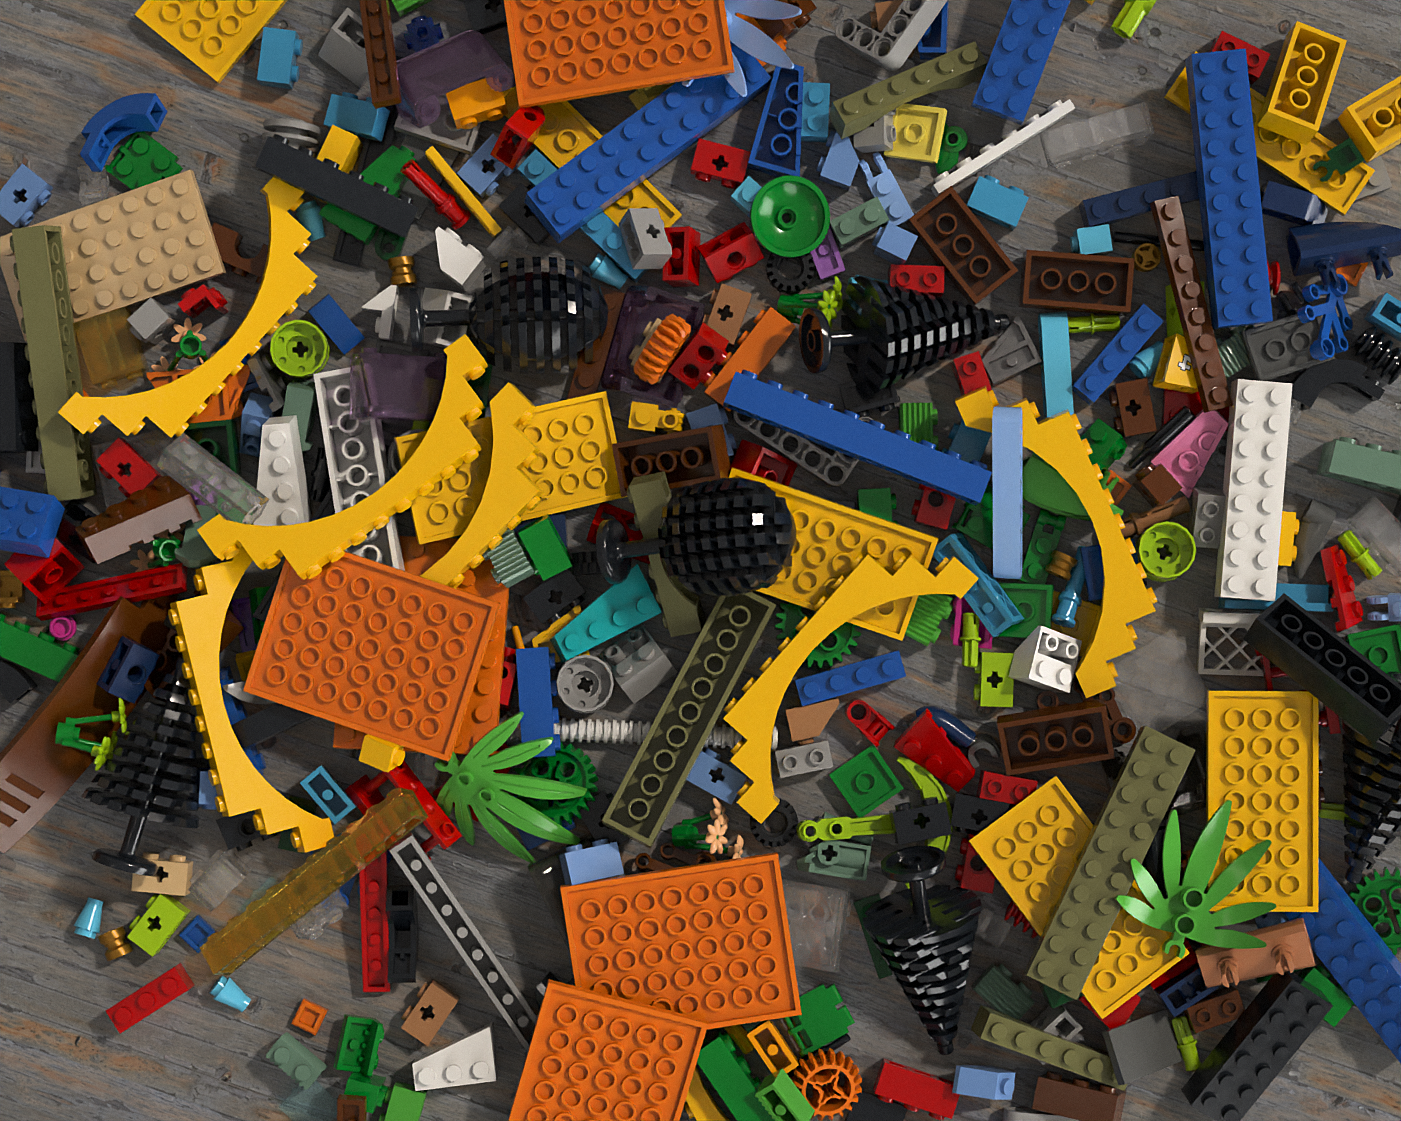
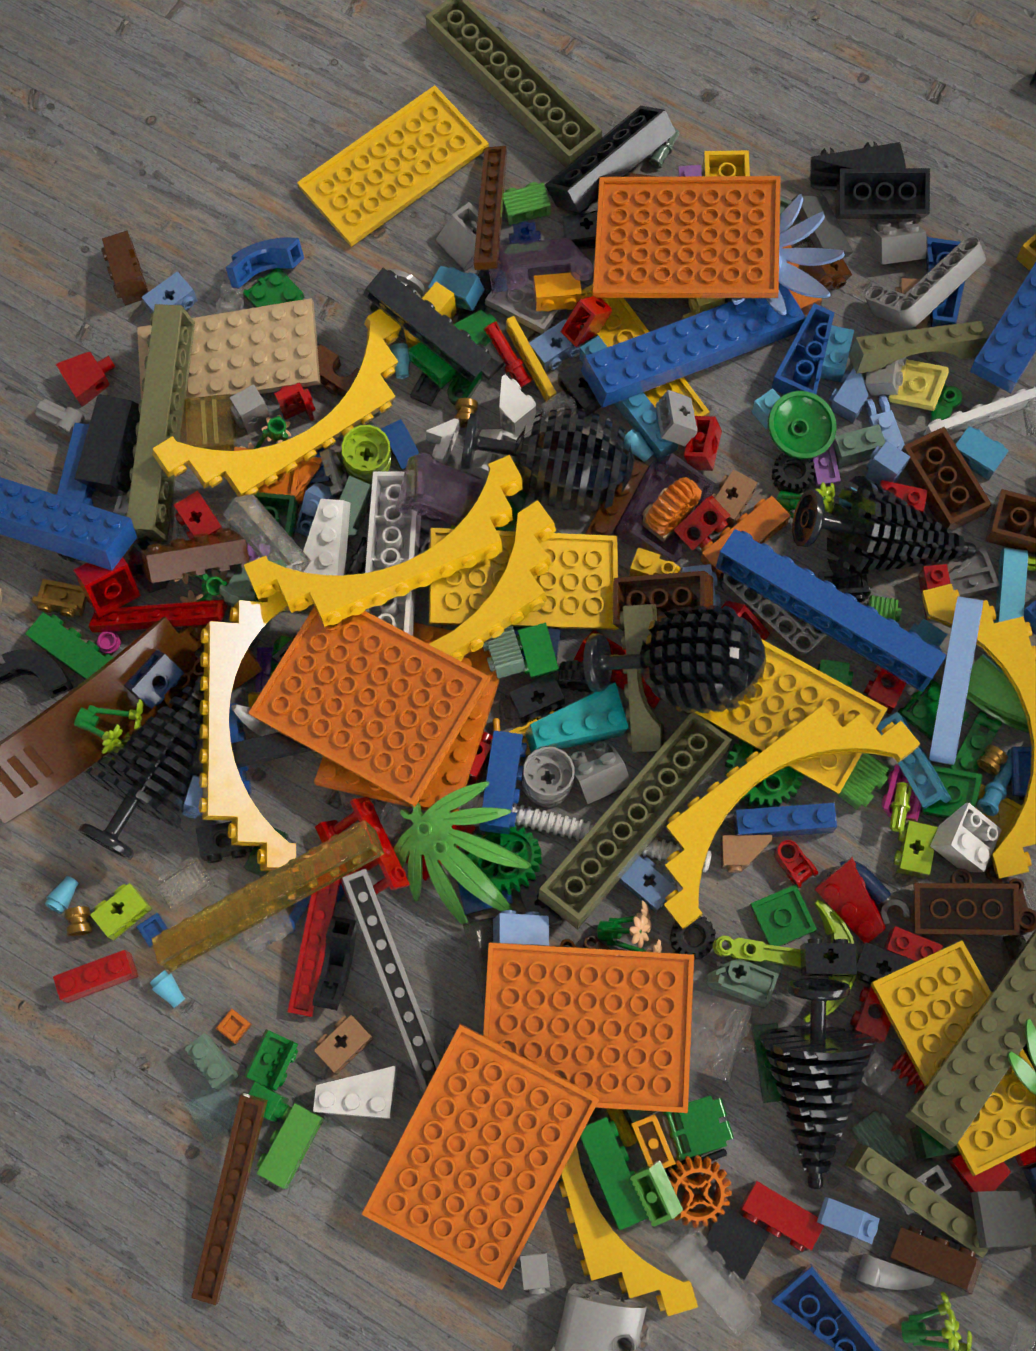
camera: 20 degrees right, 15 degrees down
(175, 883) = (145, 878): tan brick -> none
(279, 58) = (403, 235): dark azure brick -> none
(328, 794) = (299, 826): dark azure brick -> none
(381, 753) = (356, 788): yellow brick -> none
(711, 152) = (743, 369): red brick -> none
(737, 240) = (732, 446): red brick -> none
(803, 758) = (730, 883): light grey brick -> none

